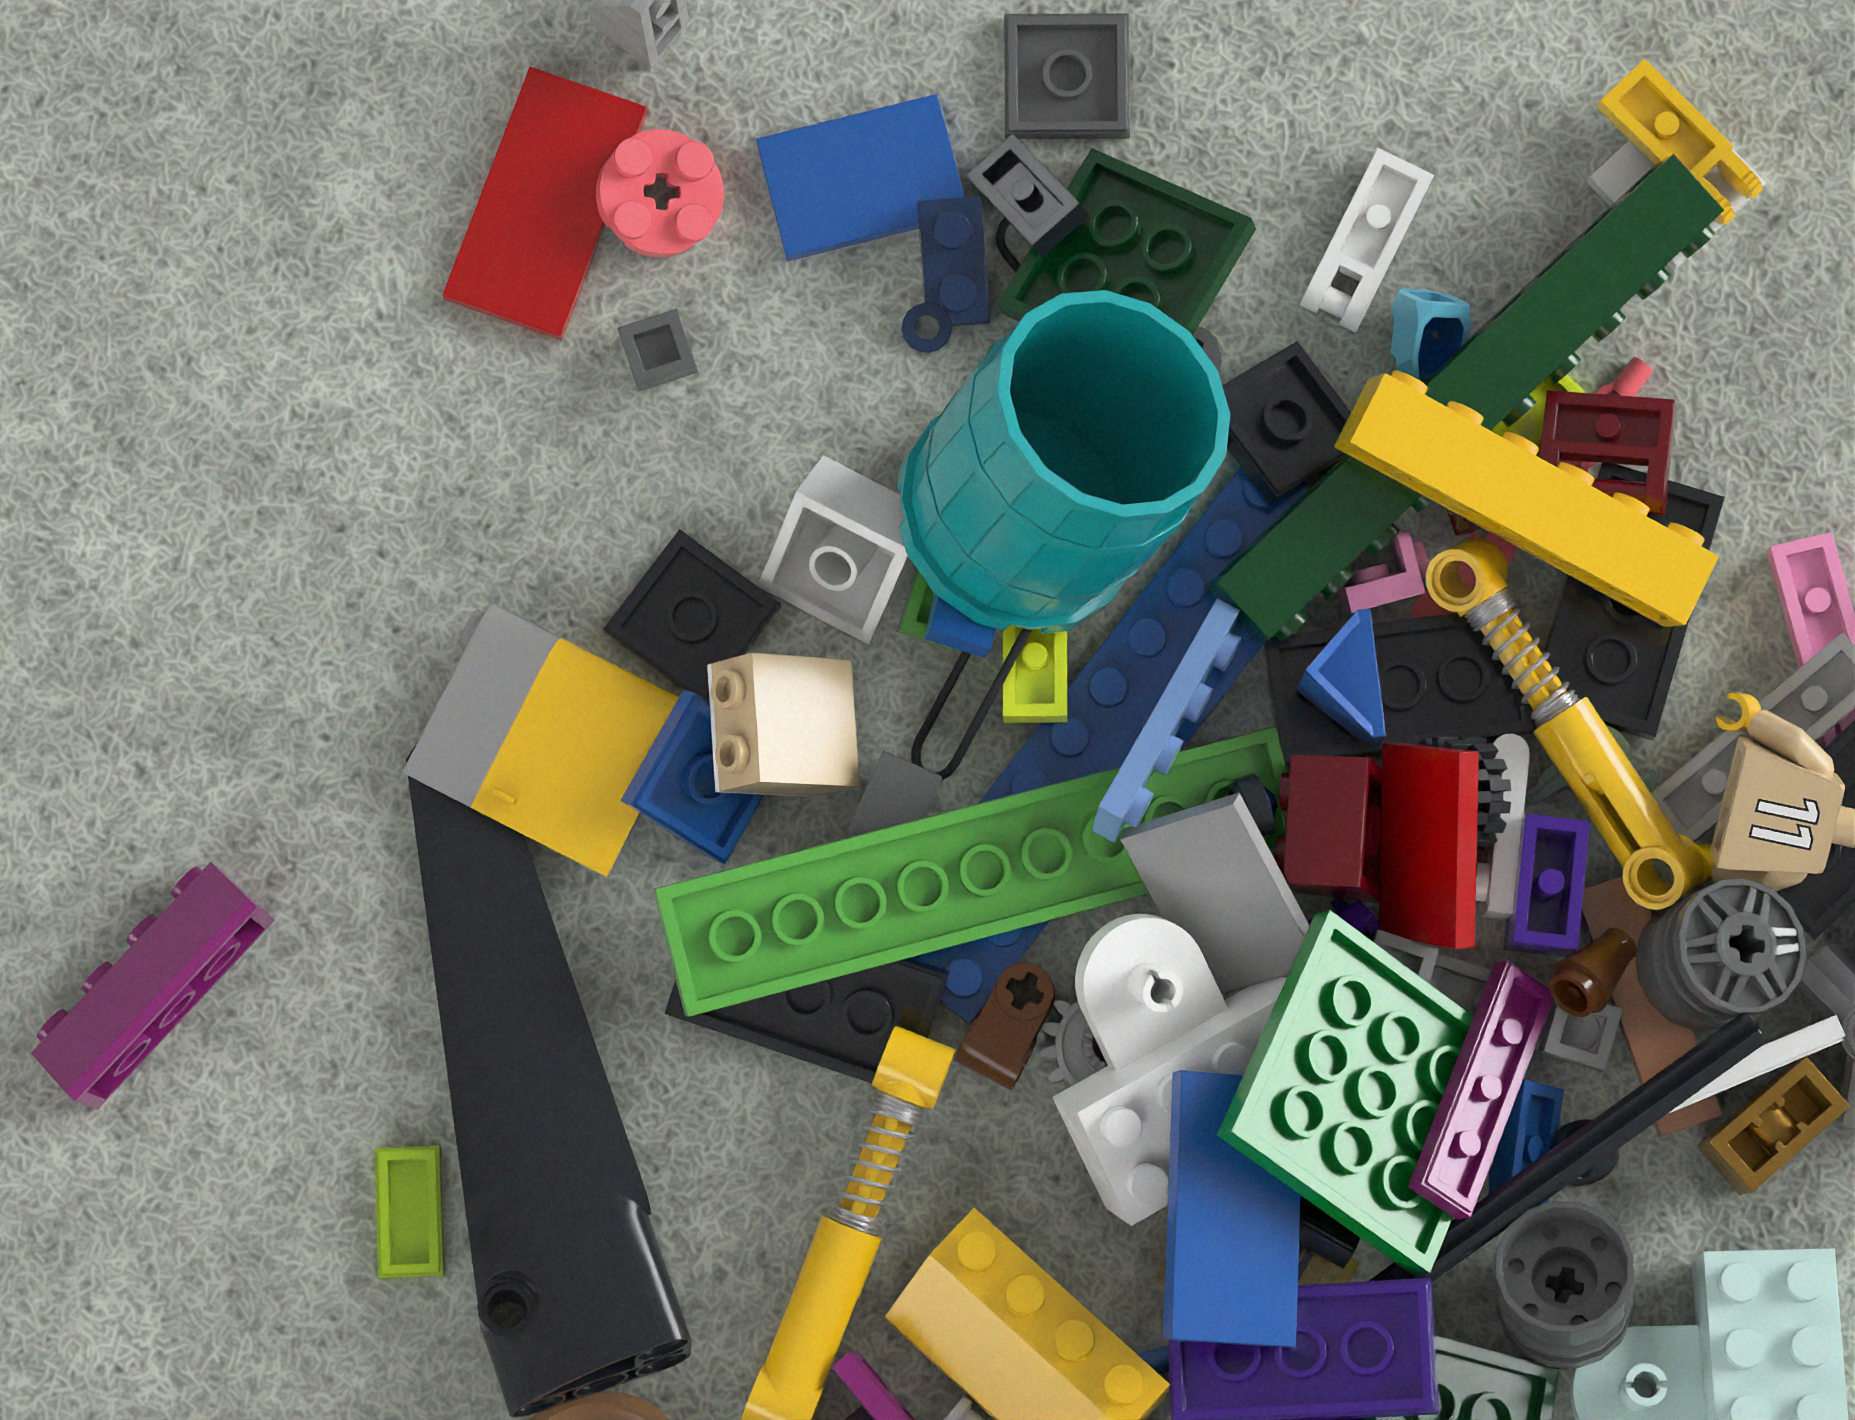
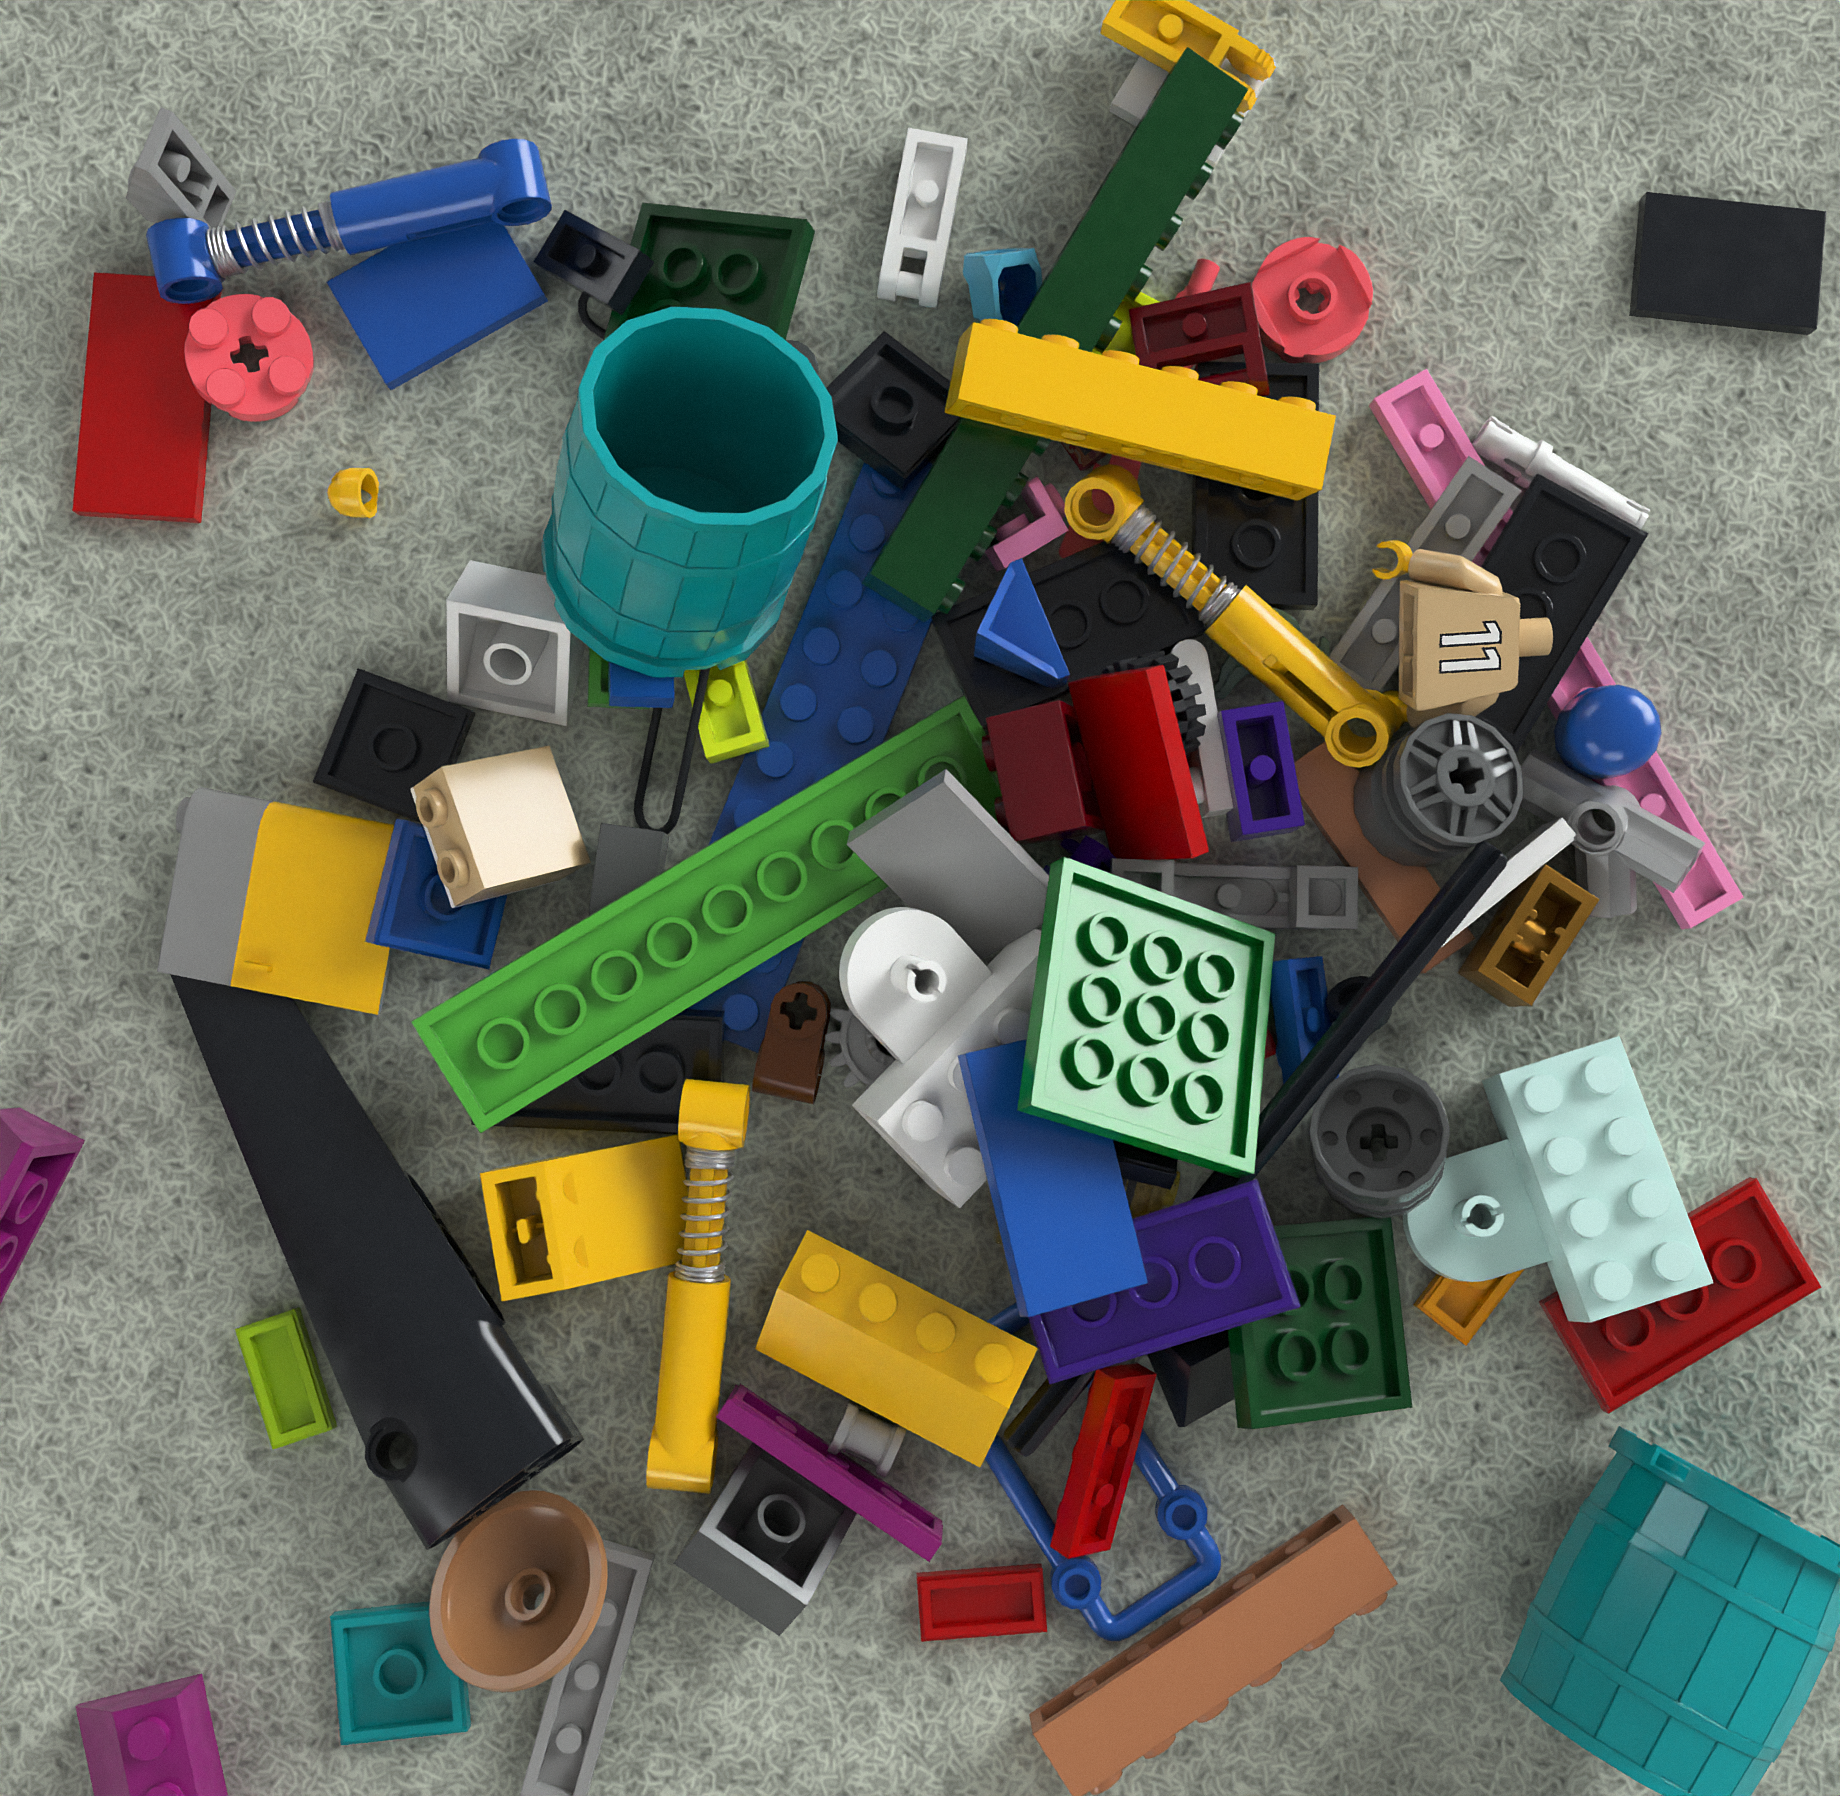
camera: 20 degrees left, 5 degrees up
(657, 350) = (289, 505): dark grey plate -> none
(718, 353) = (345, 492): none -> yellow hinge
(759, 1134) = (586, 1216): none -> yellow slope
(951, 269) = (542, 351): dark blue hinge -> none
(958, 97) = (498, 186): none -> blue piece
(1067, 76) = (601, 143): dark grey tile -> none
(1156, 744) = (855, 743): medium blue plate -> none
(1258, 800) = (967, 770): black tile -> none
(1481, 1090) = (1252, 984): magenta tile -> none
(1590, 975) = (1321, 846): reddish brown cone -> none
(1753, 400) = (1318, 268): none -> coral plate

